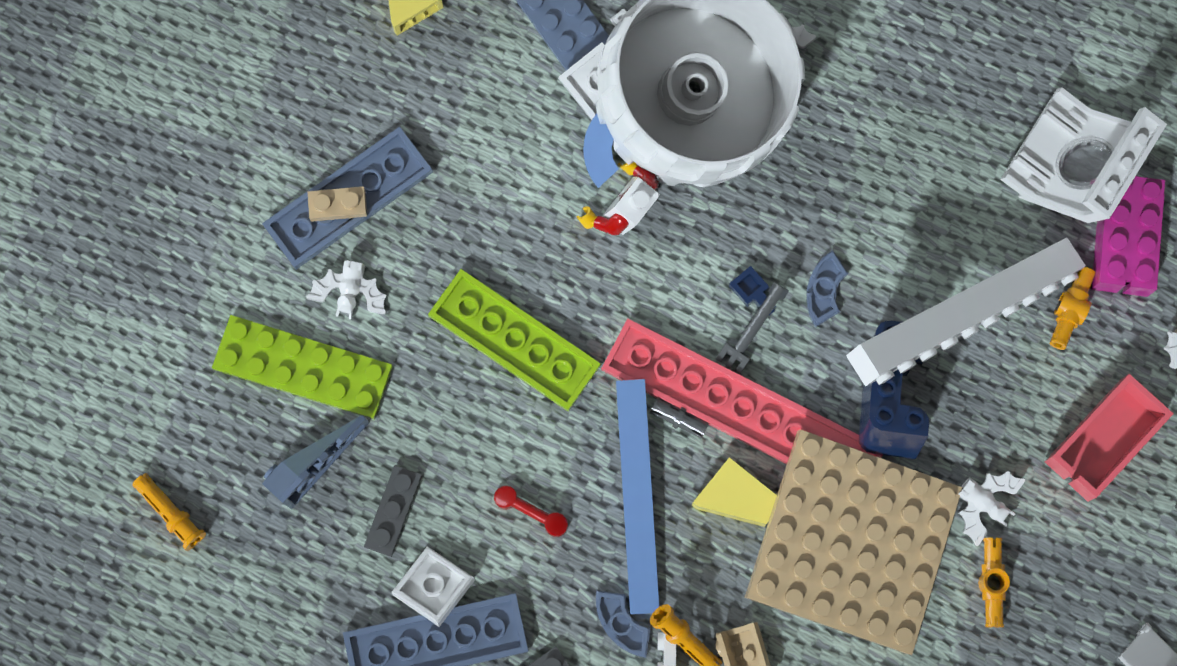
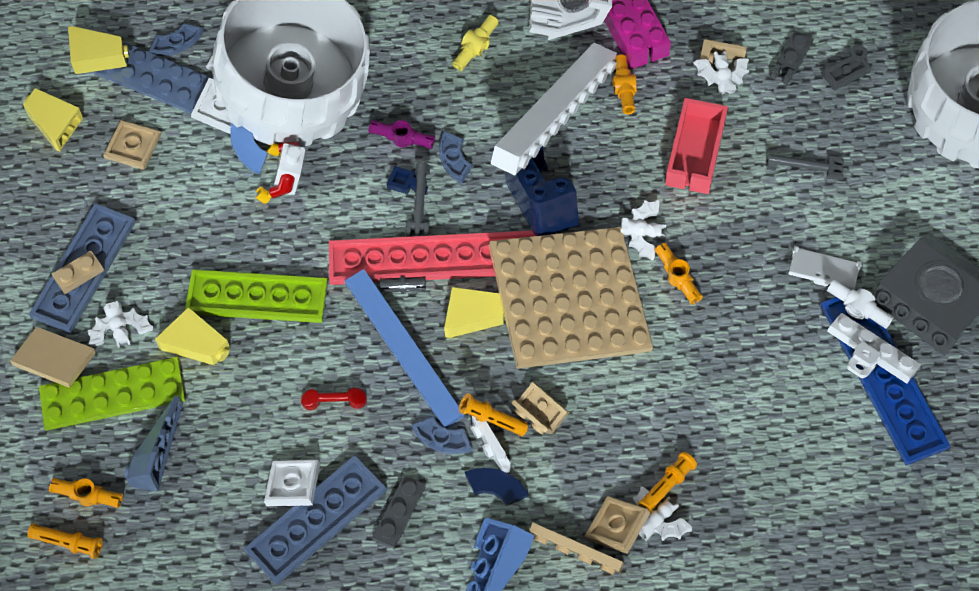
camera: 30 degrees left, 15 degrees down
(205, 460) = (76, 488): none -> light orange pin
(261, 290) = (53, 357): none -> tan tile
(393, 511) = (233, 452): dark grey plate -> none
(419, 354) = (193, 339): none -> light yellow slope
(479, 72) = (132, 144): none -> tan tile
(772, 218) = (393, 130): none -> magenta pin
(930, 157) = (475, 42): none -> light yellow pin

